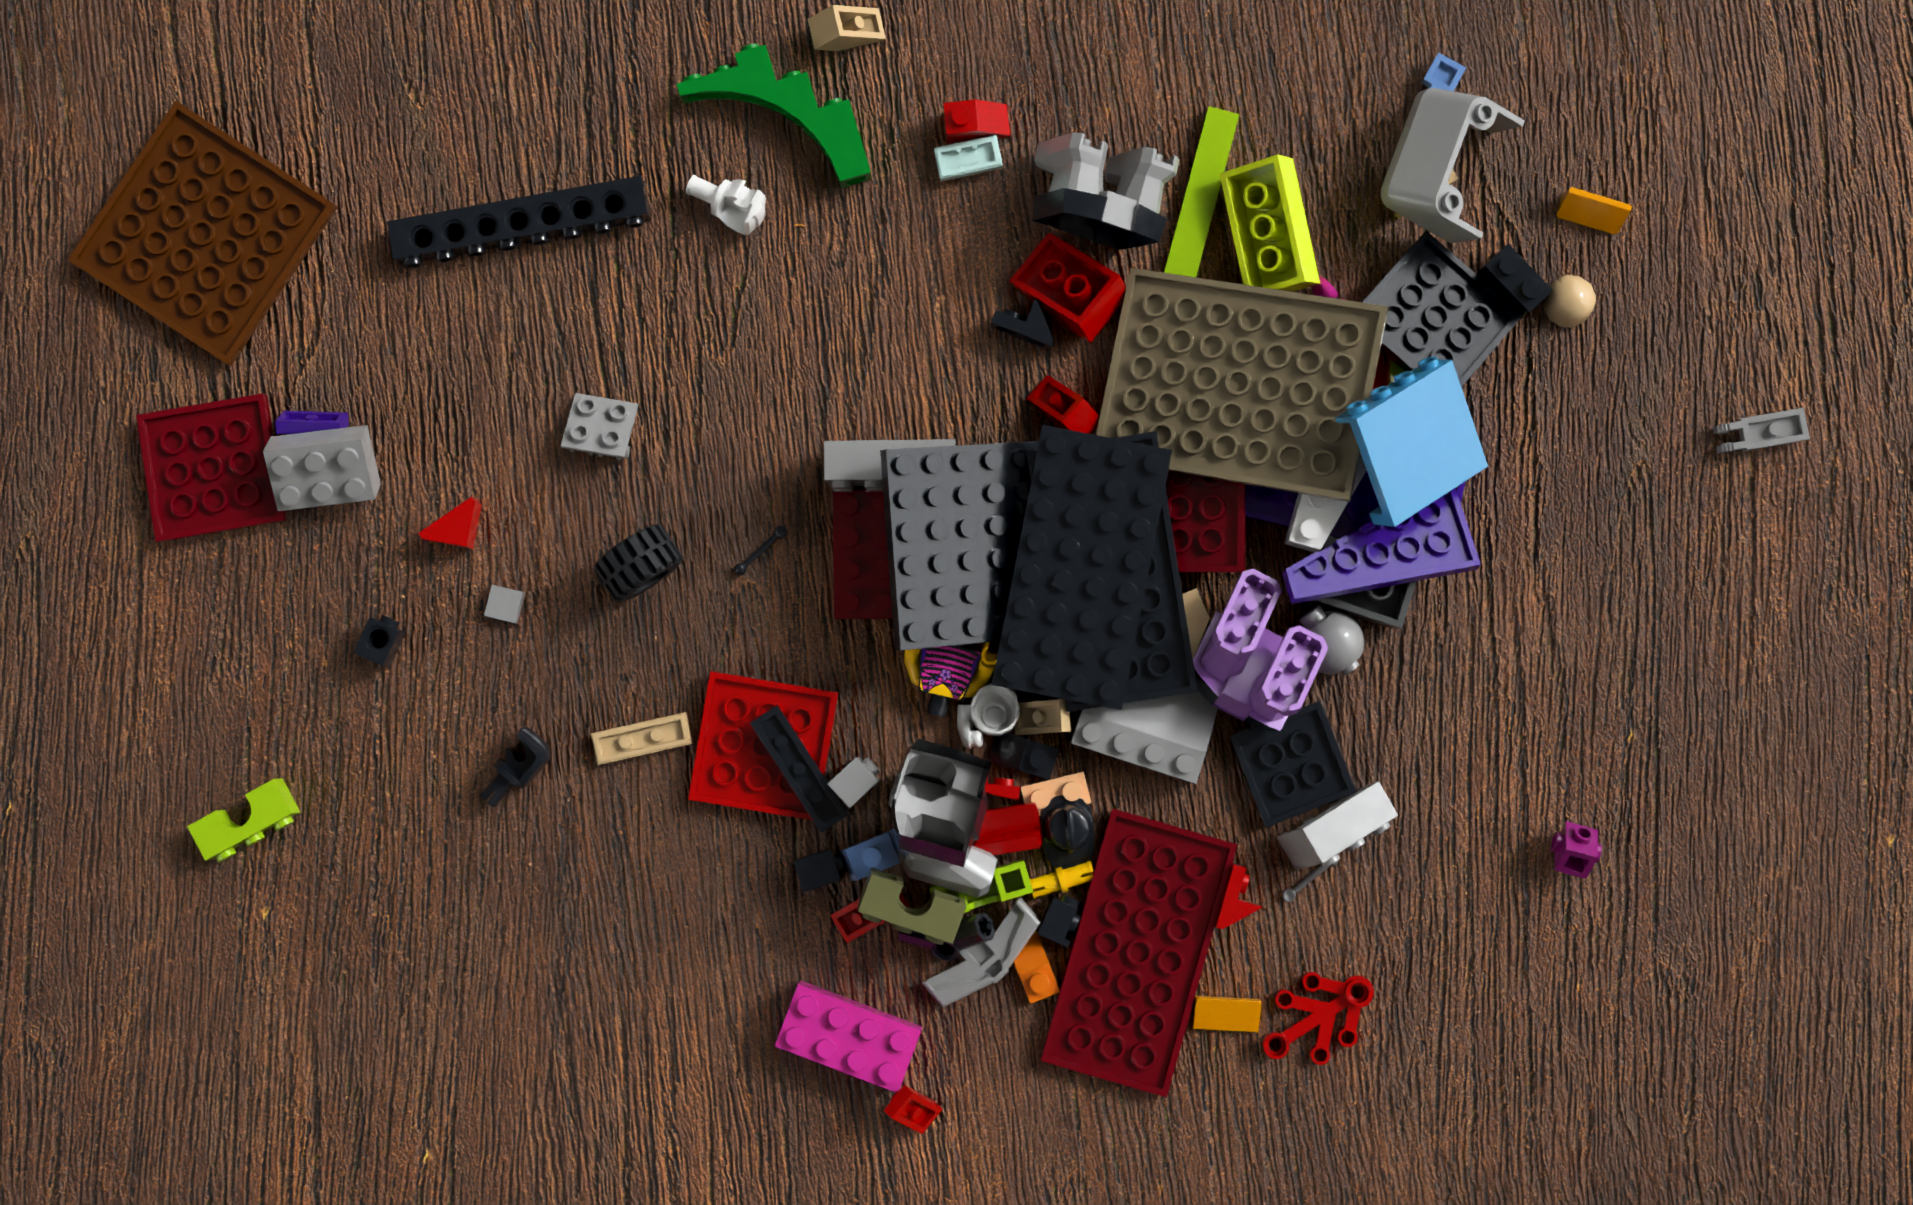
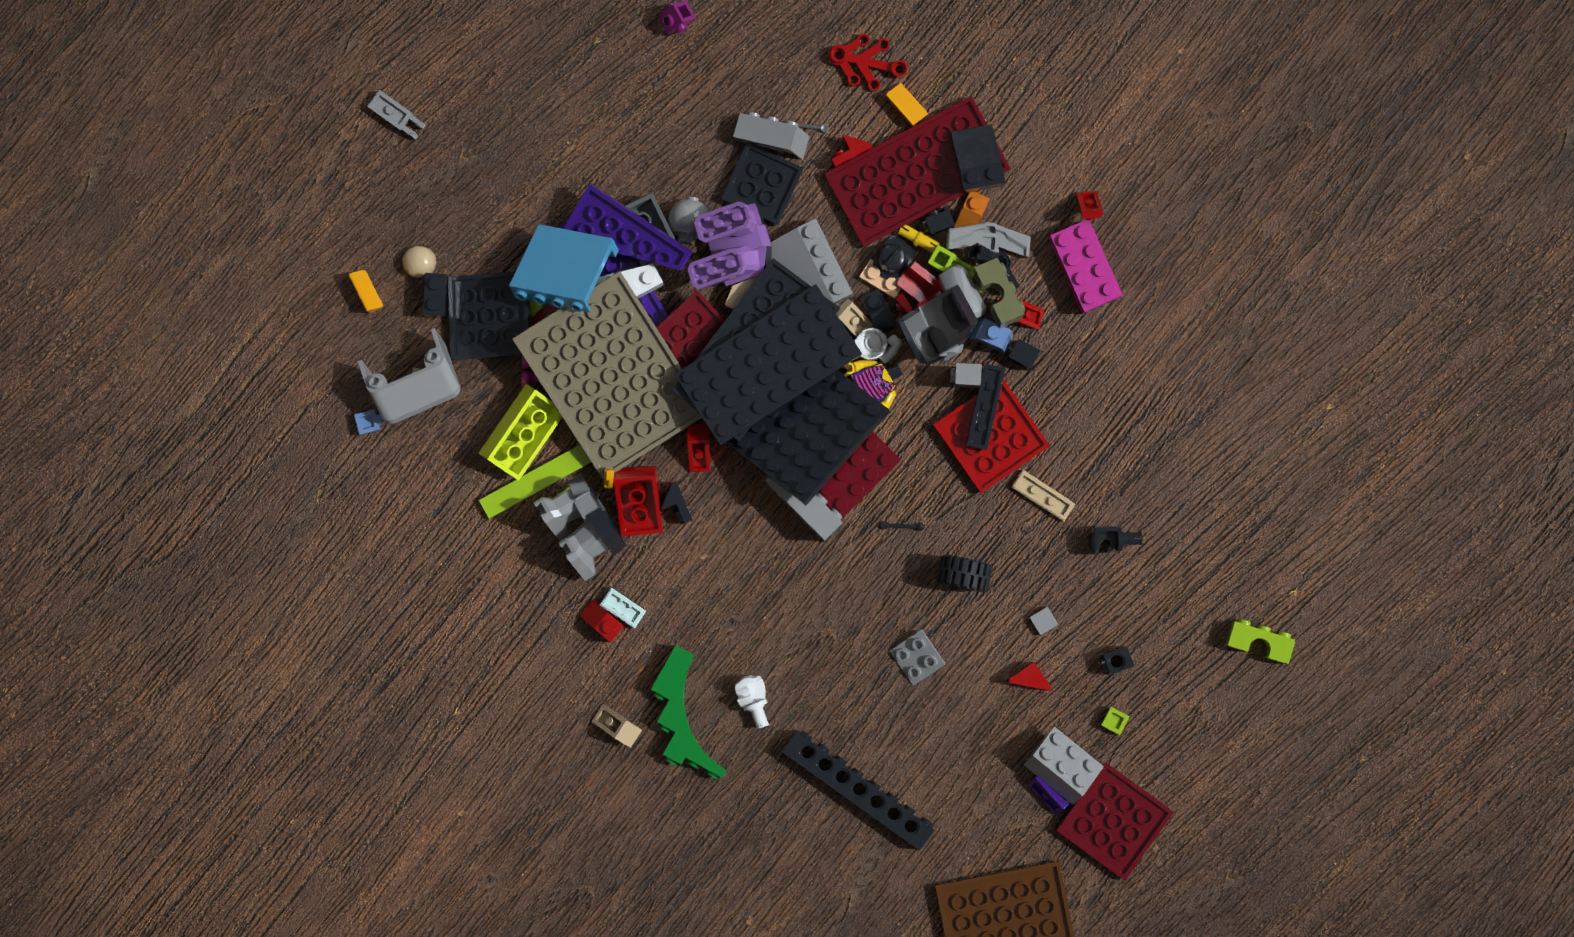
camera: 135 degrees left, 0 degrees up
(318, 575) = (1115, 720): none -> lime plate
(1087, 1034) = (978, 159): none -> black slope
(1128, 274) = (608, 477): none -> light orange tile

